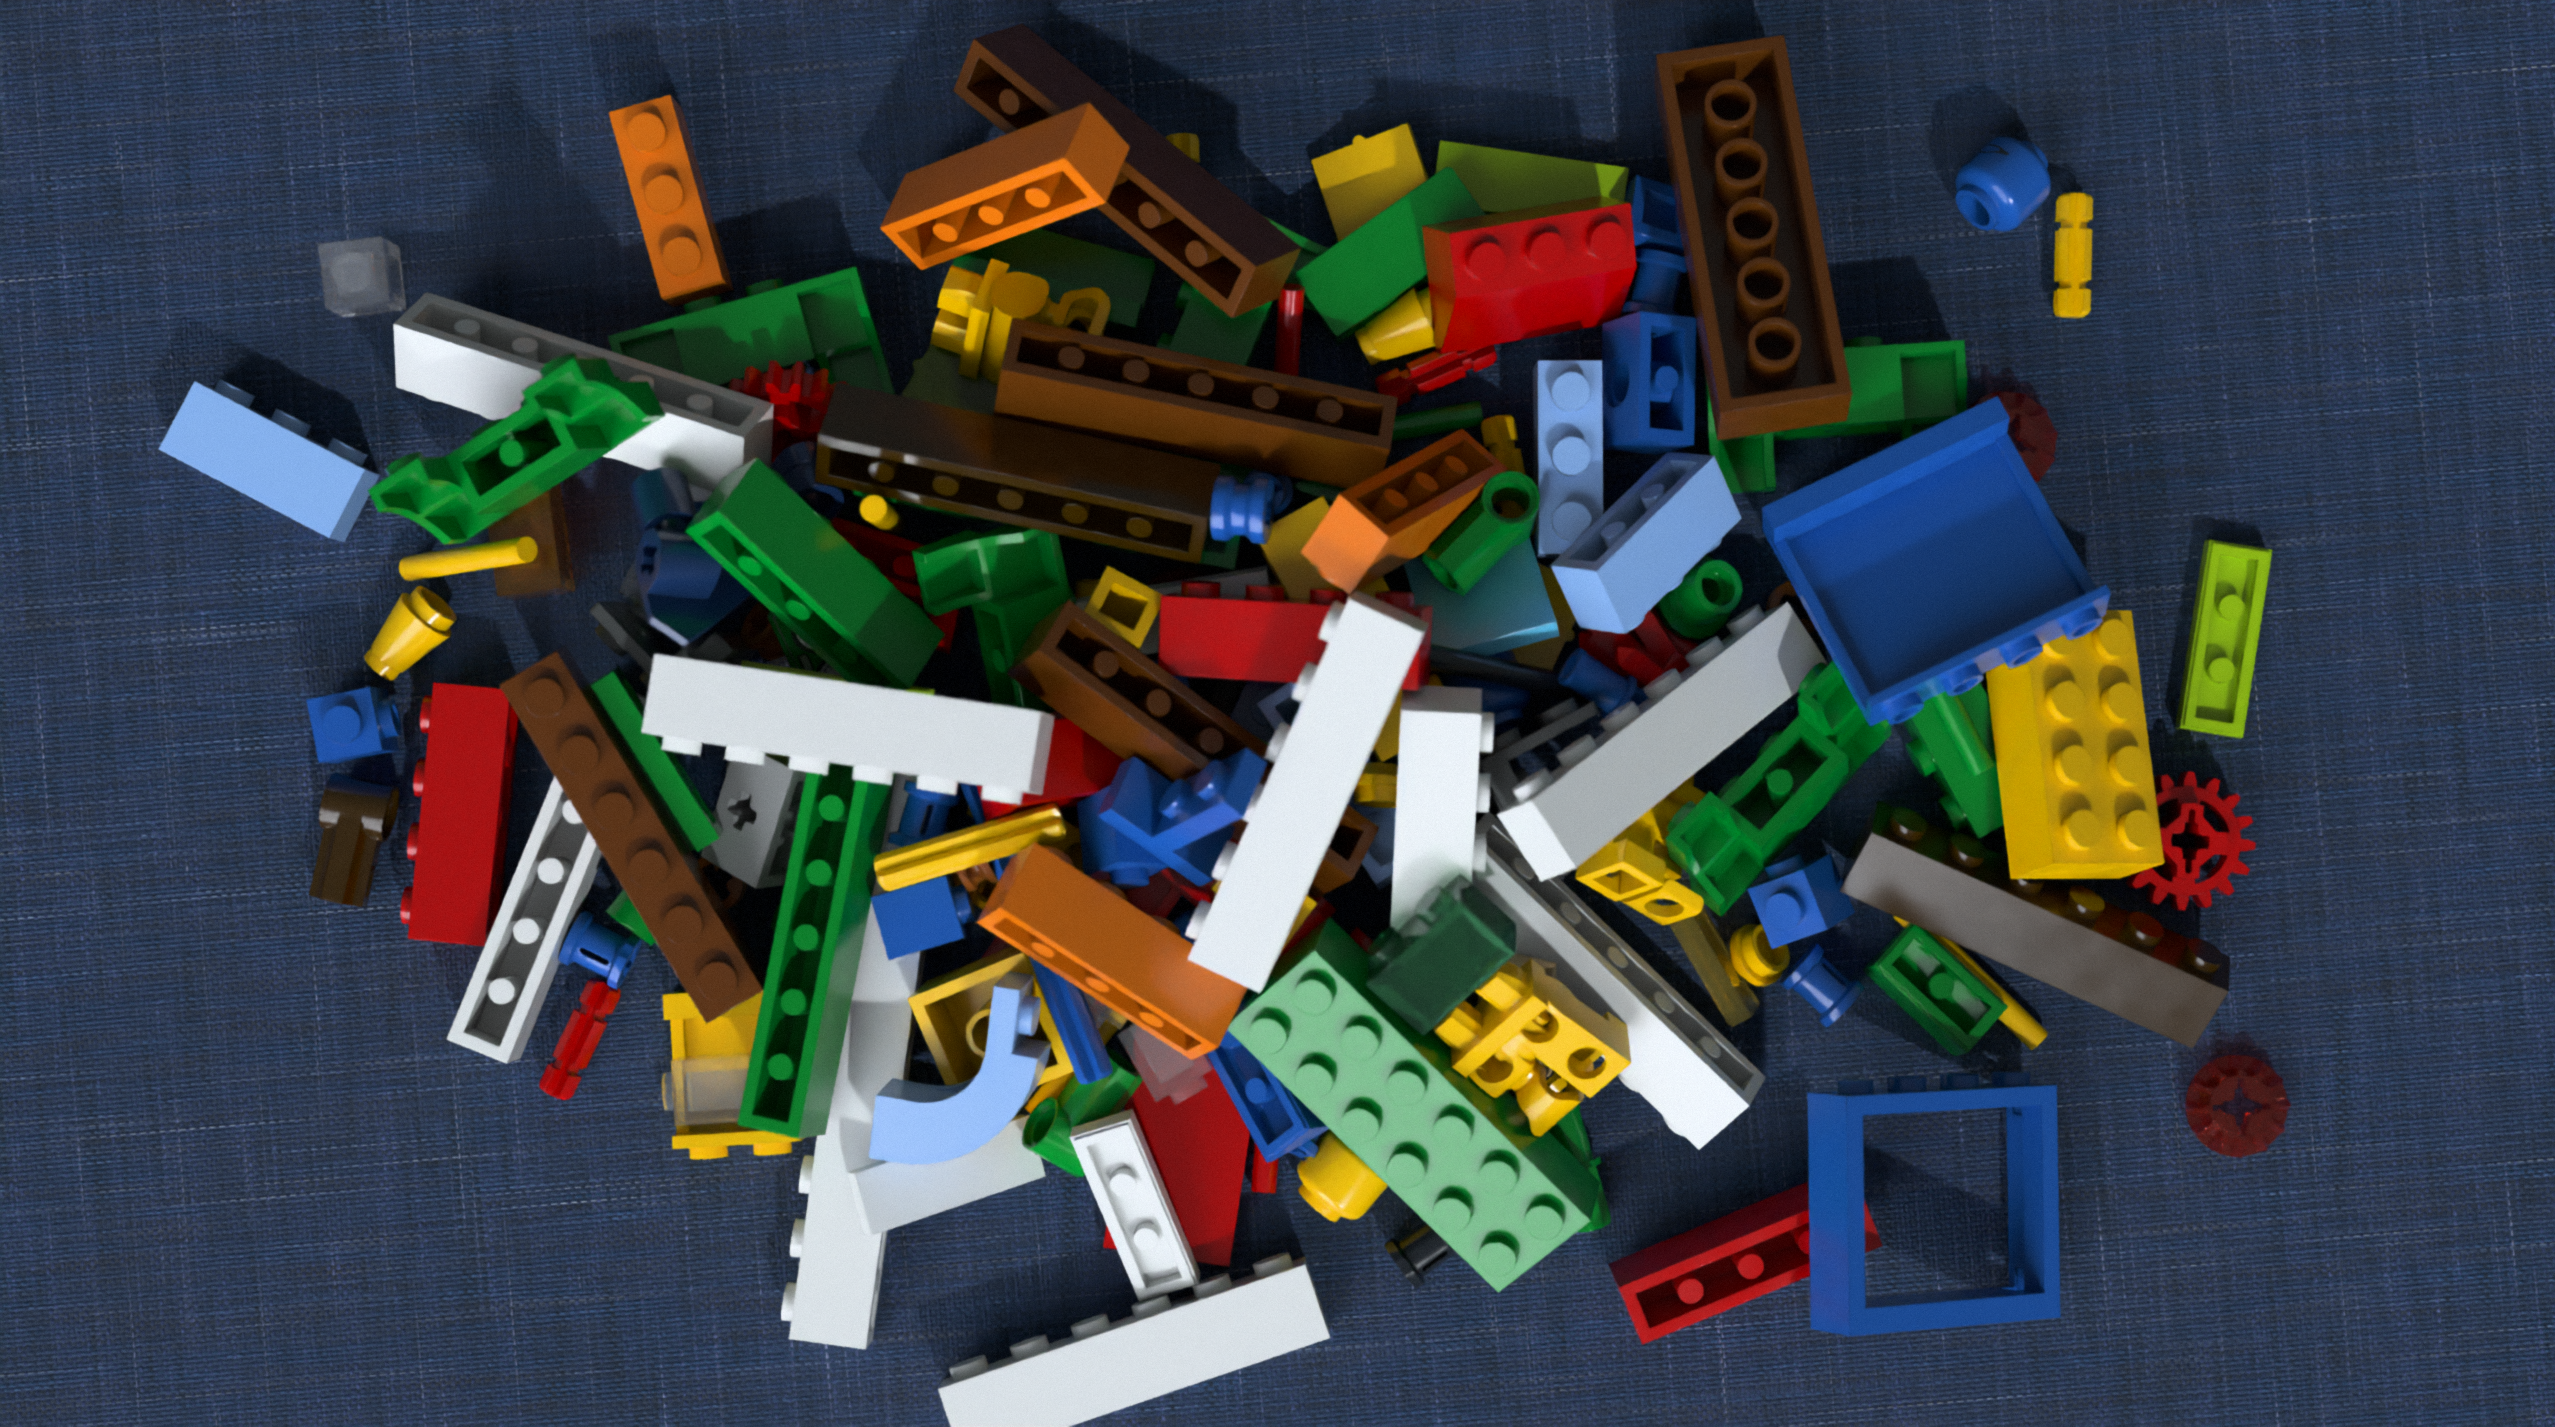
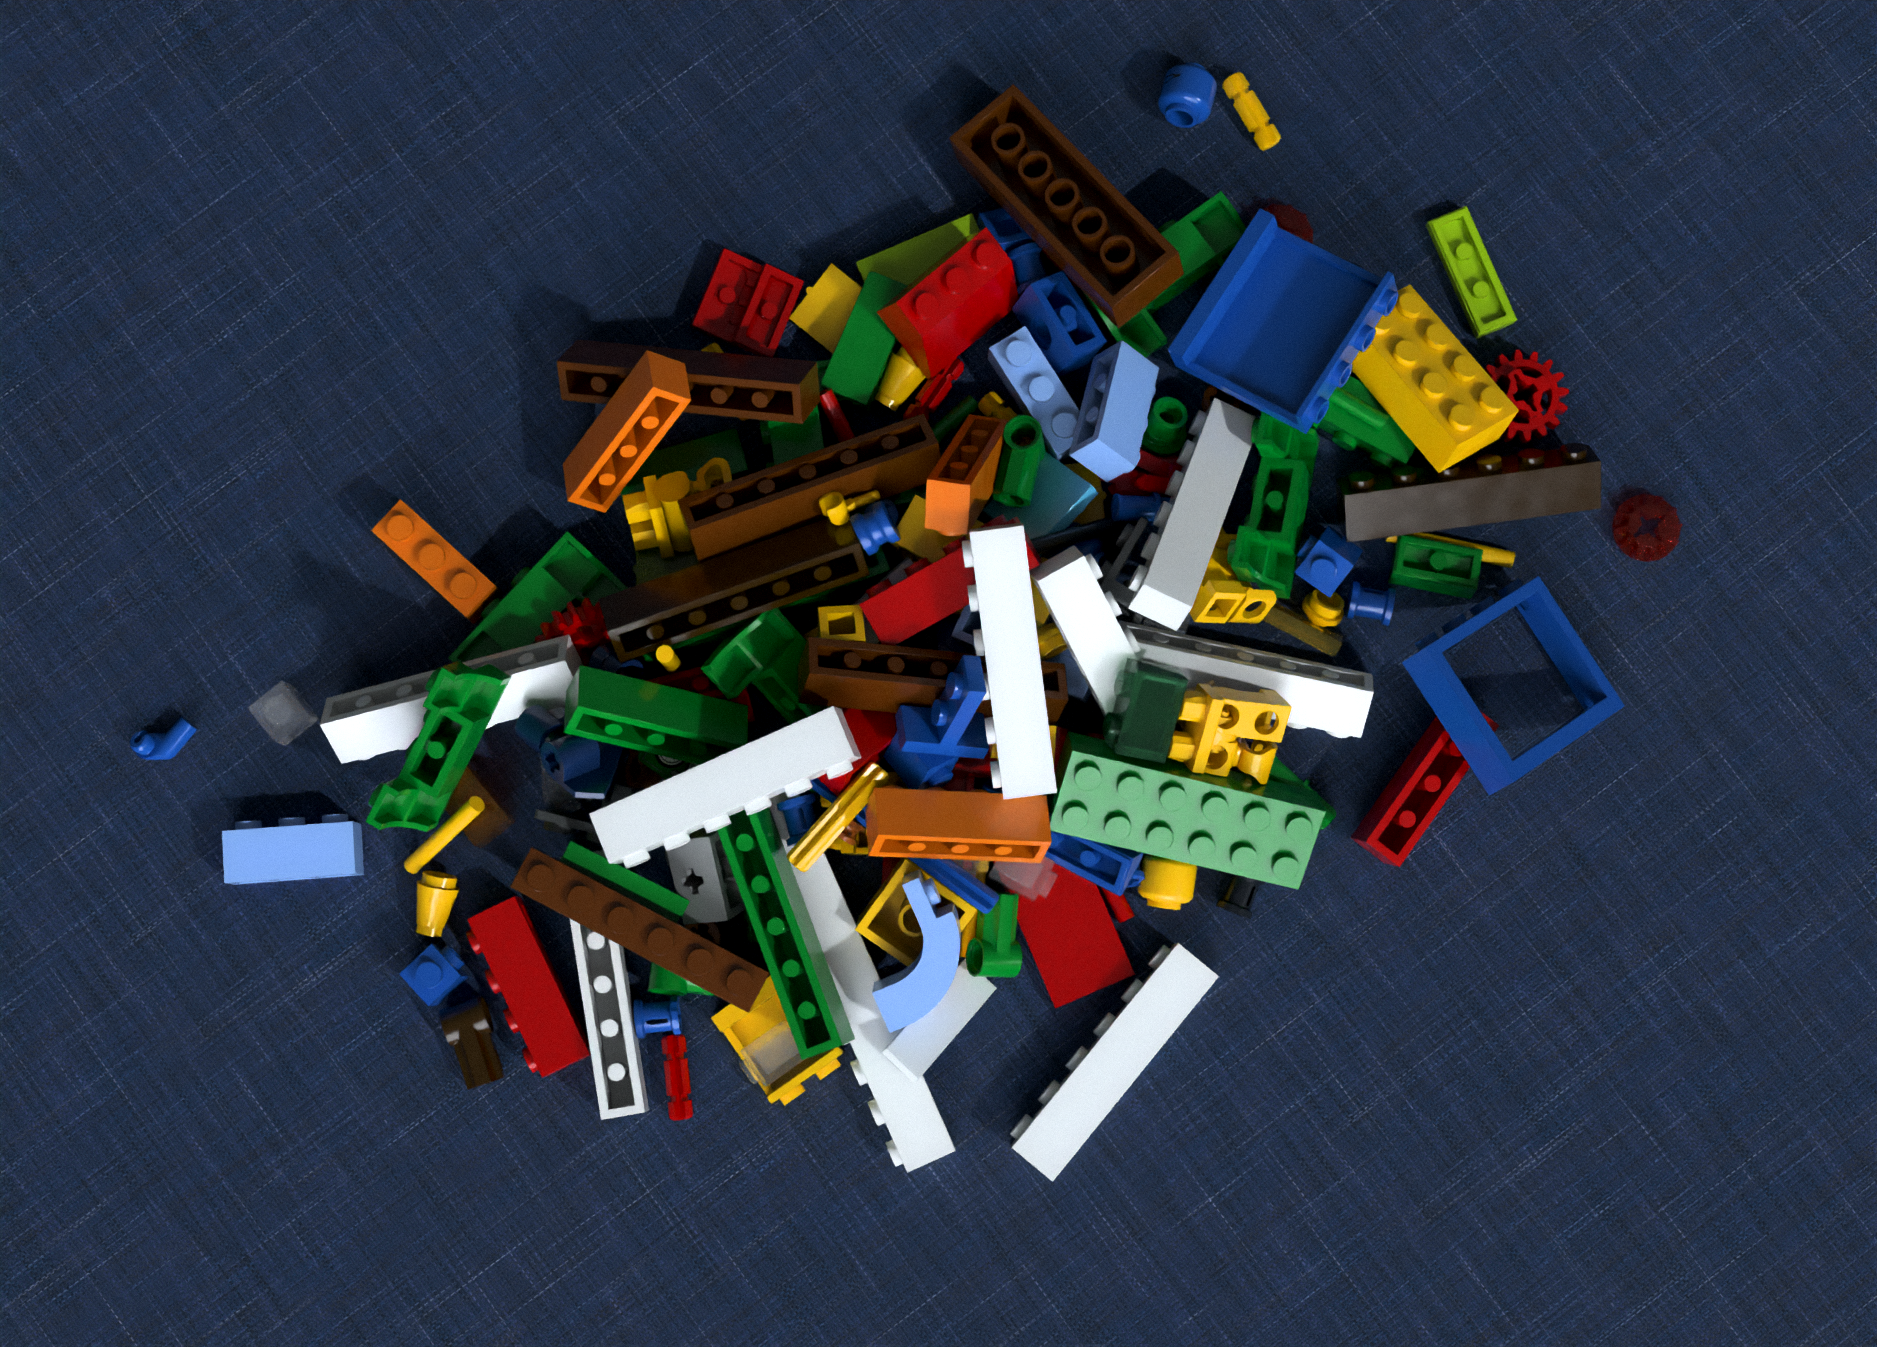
camera: 35 degrees left, 5 degrees down
(188, 222) = (162, 745): none -> blue arm
(923, 915) = (834, 875): blue brick -> none
(1135, 1205) = (1059, 969): white tile -> none
(1210, 455) = (838, 509): none -> yellow hand
(1268, 108) = (746, 303): none -> red slope

